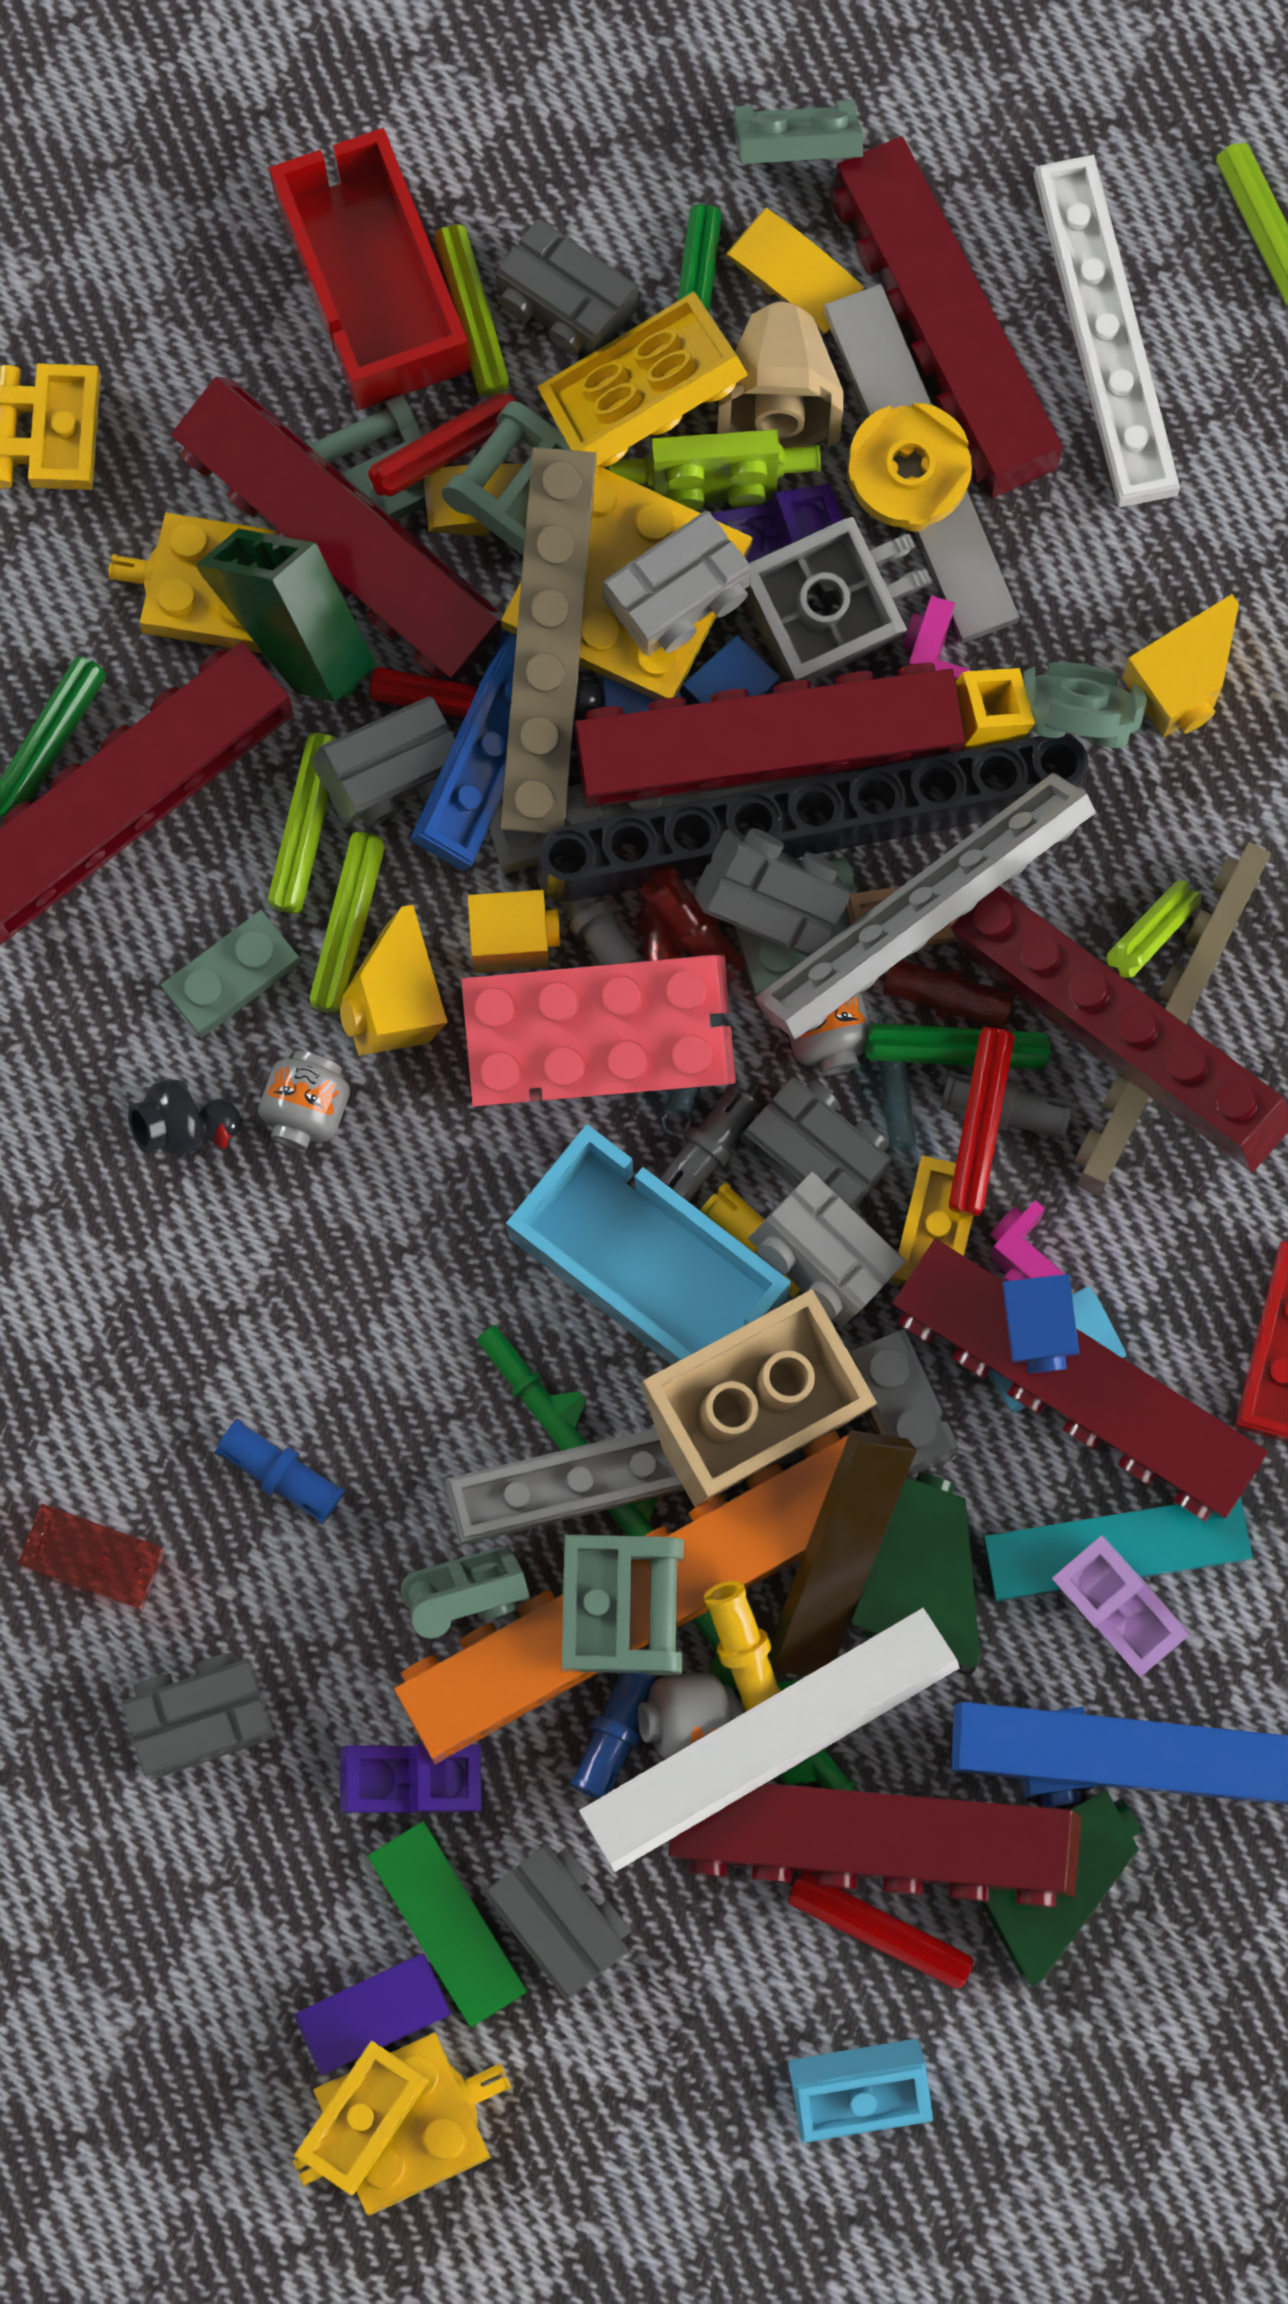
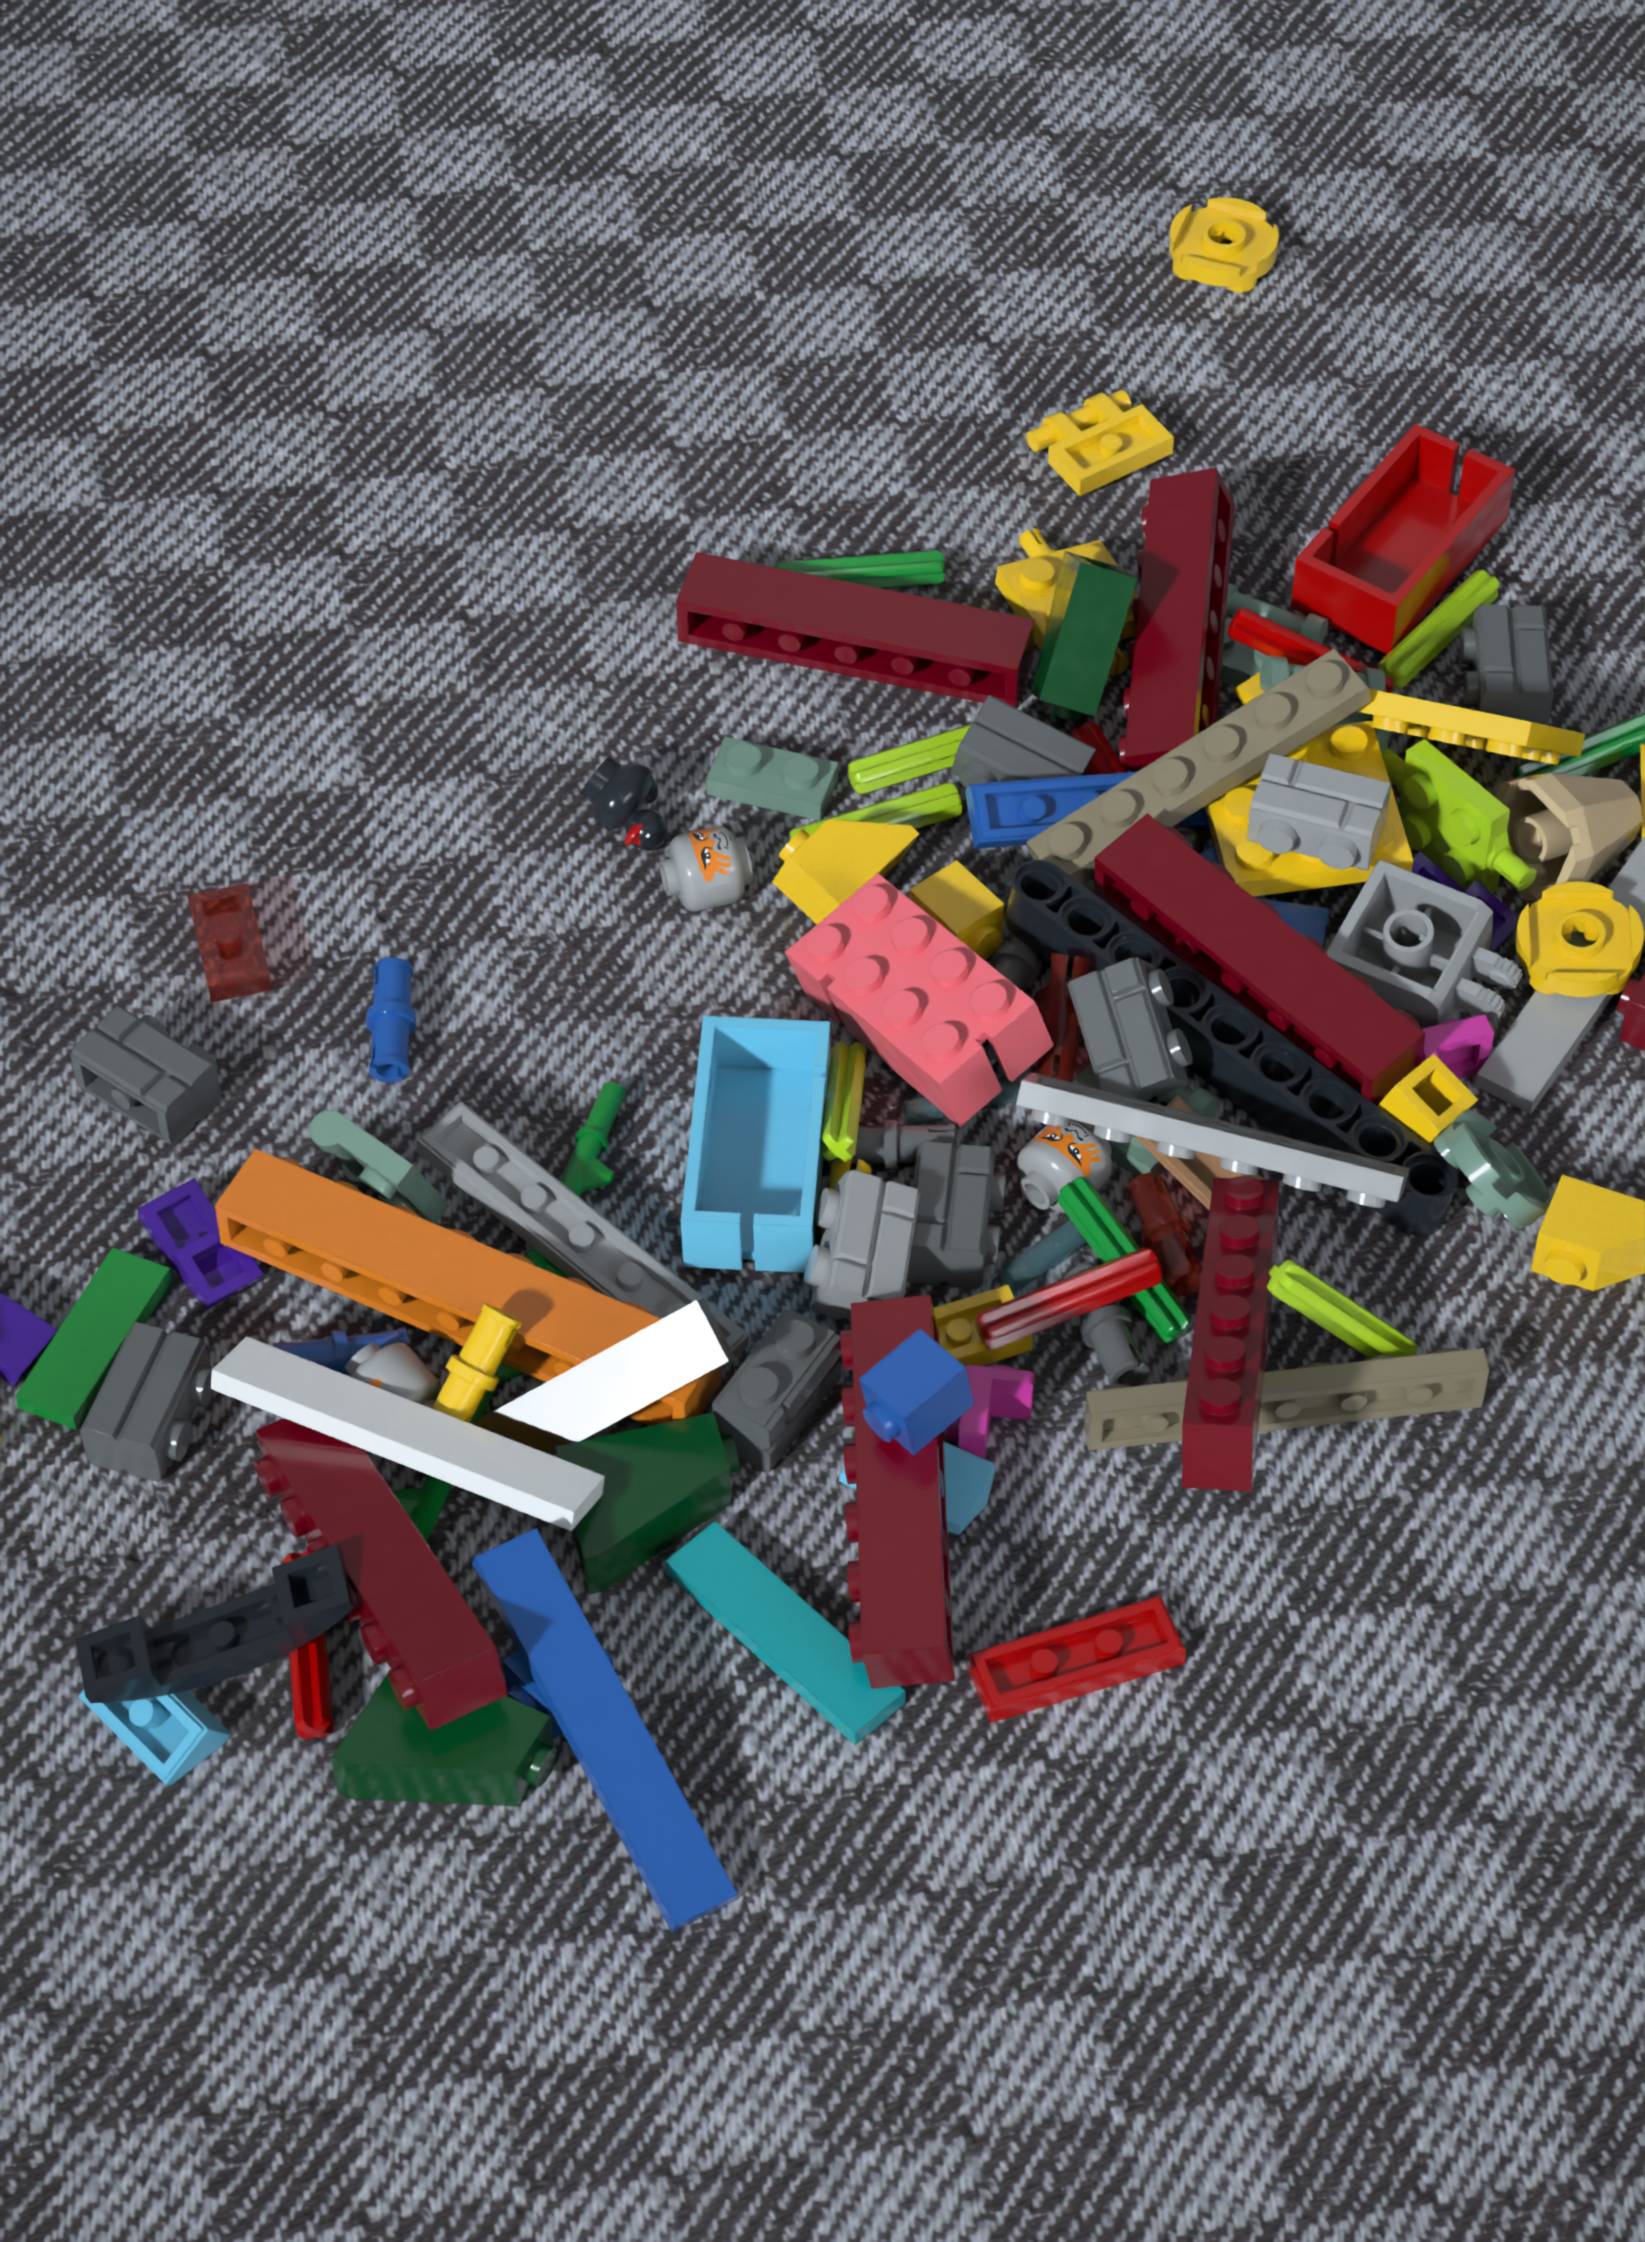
camera: 55 degrees right, 25 degrees down
(599, 1604) = (429, 1232): sand green plate -> none
(672, 1170) = (843, 1101): none -> lime axle
(755, 1397) = (681, 1239): tan slope -> none
(858, 2008) = (219, 1641): none -> black slope
(1121, 1606) = (733, 1653): lavender slope -> none

